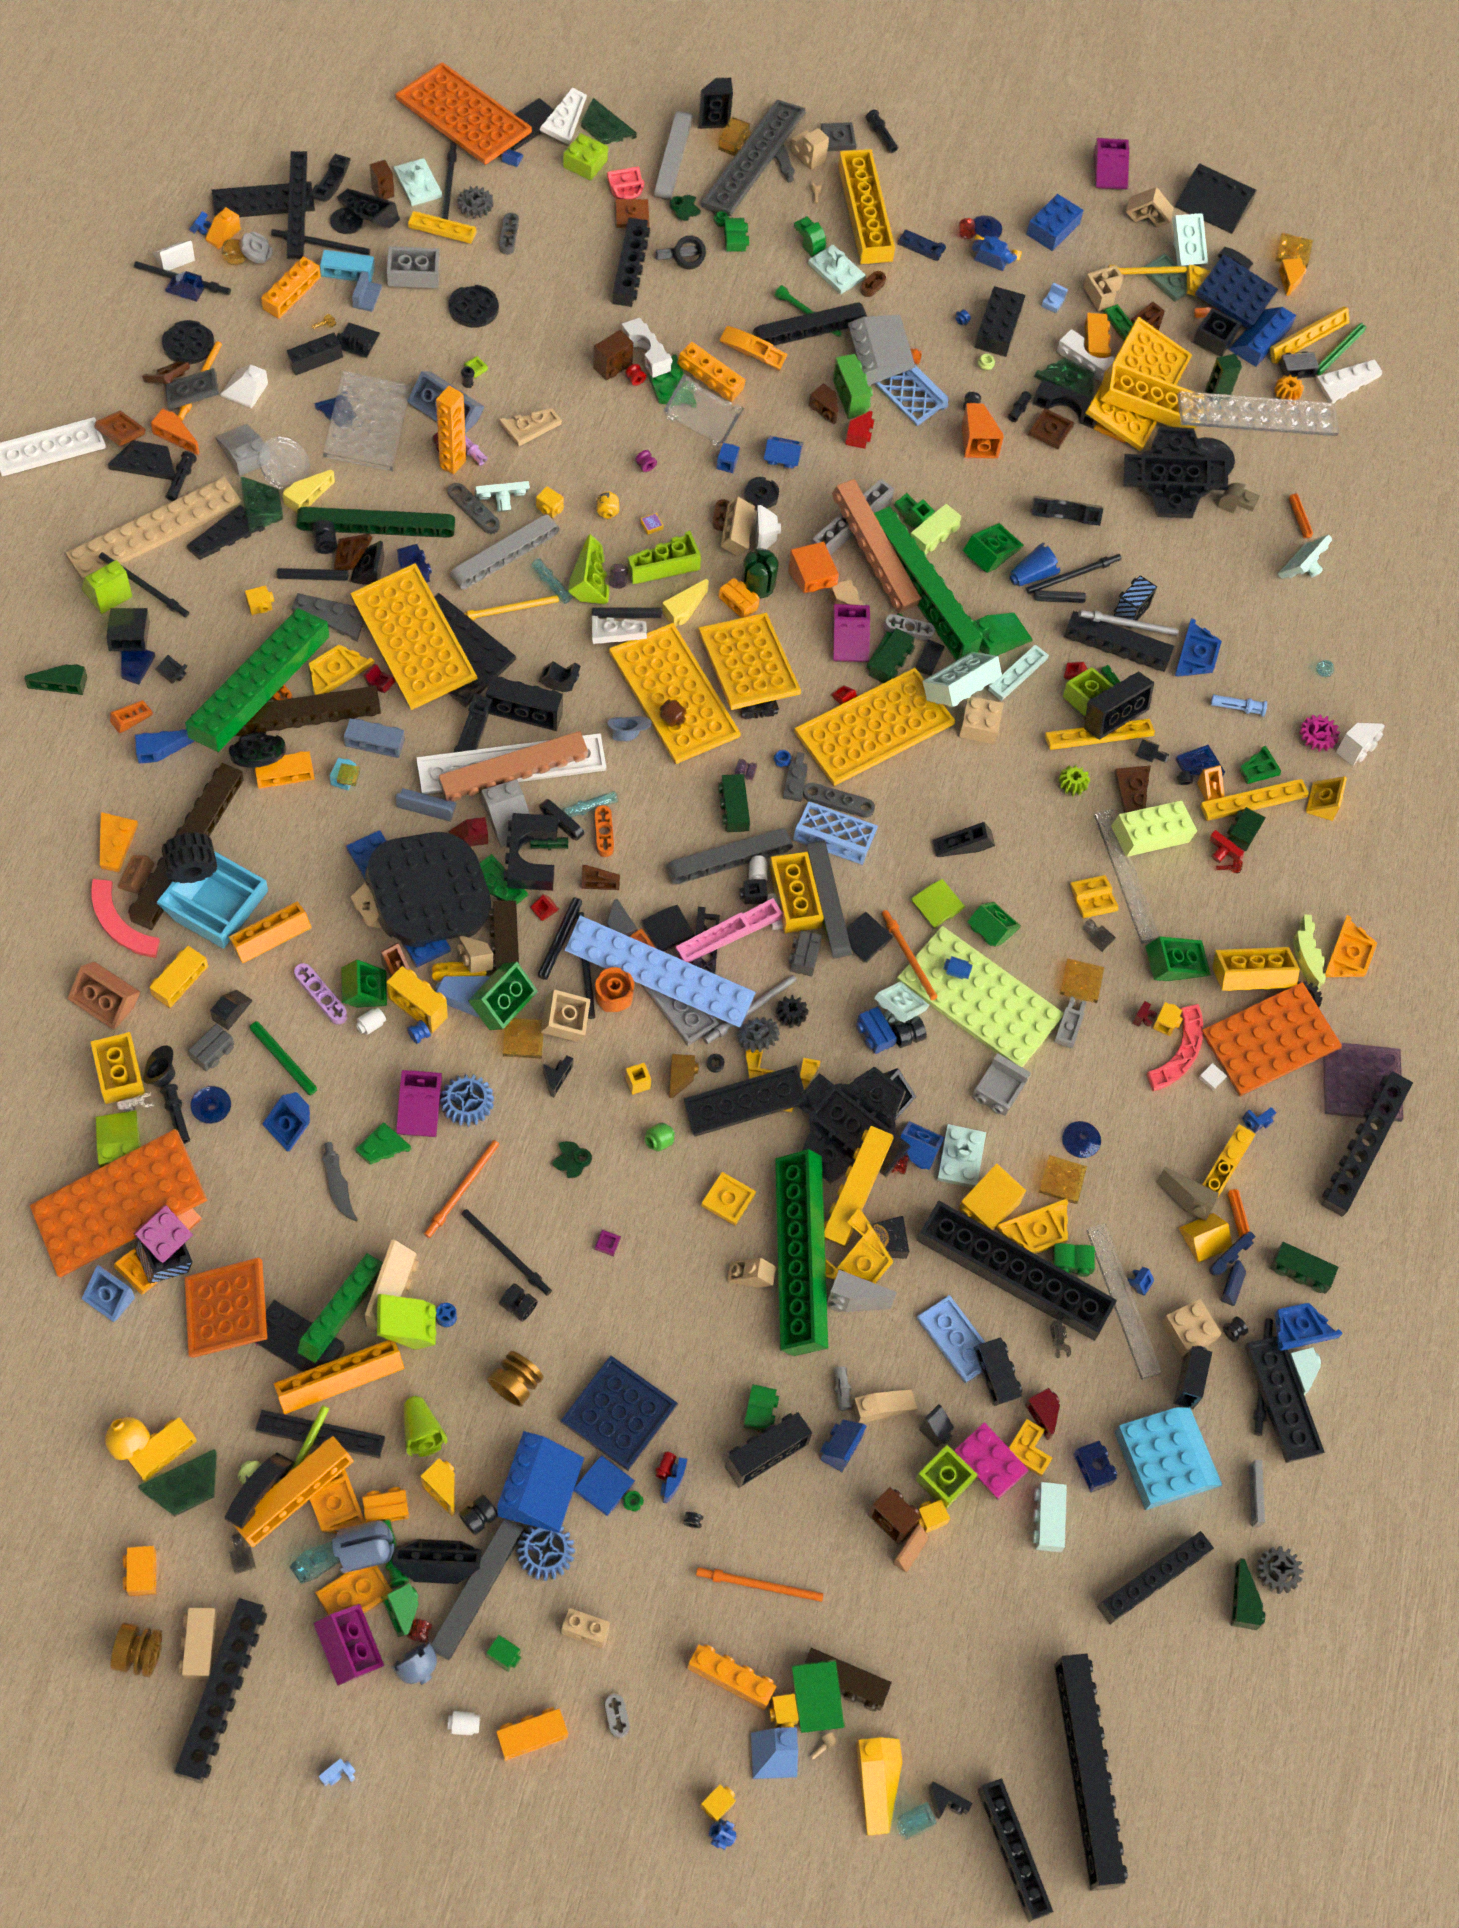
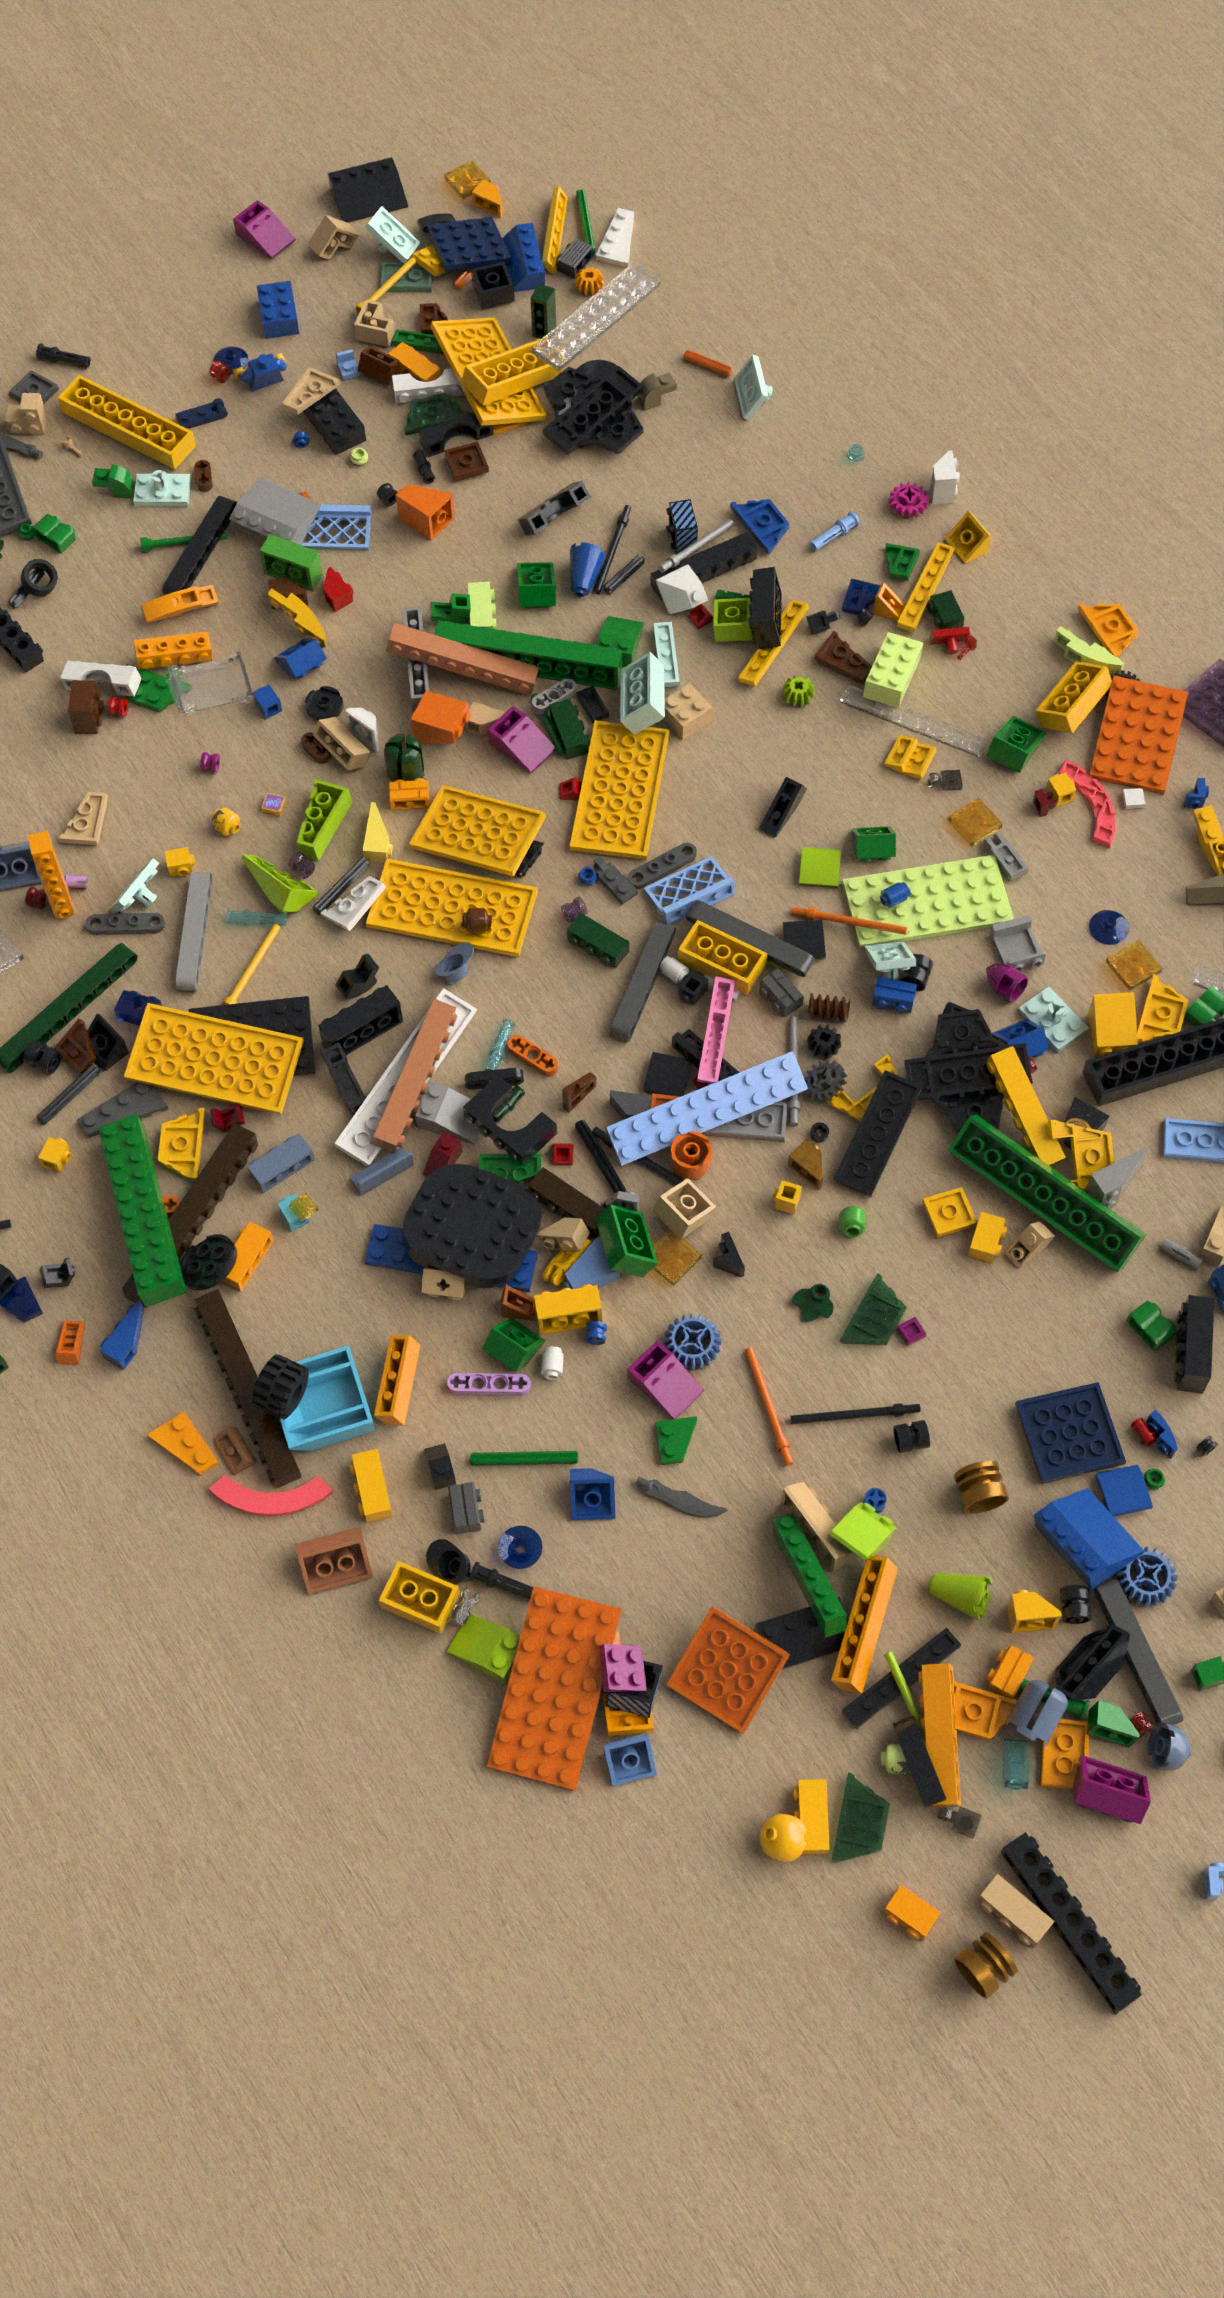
camera: 40 degrees left, 0 degrees up
(534, 974) = (623, 1199): none -> light grey wing
(597, 1208) = (875, 1317): none -> clear green wing
(730, 1239) = (986, 1237): none -> yellow brick
(814, 426) = (304, 620): none -> yellow slope
(822, 995) = (828, 1007): none -> reddish brown piece
(960, 1099) = (1007, 981): none -> magenta helmet
(999, 288) = (309, 390): none -> tan wing
(1072, 314) = (378, 365): none -> reddish brown brick
(1079, 640) = (681, 590): none -> white slope

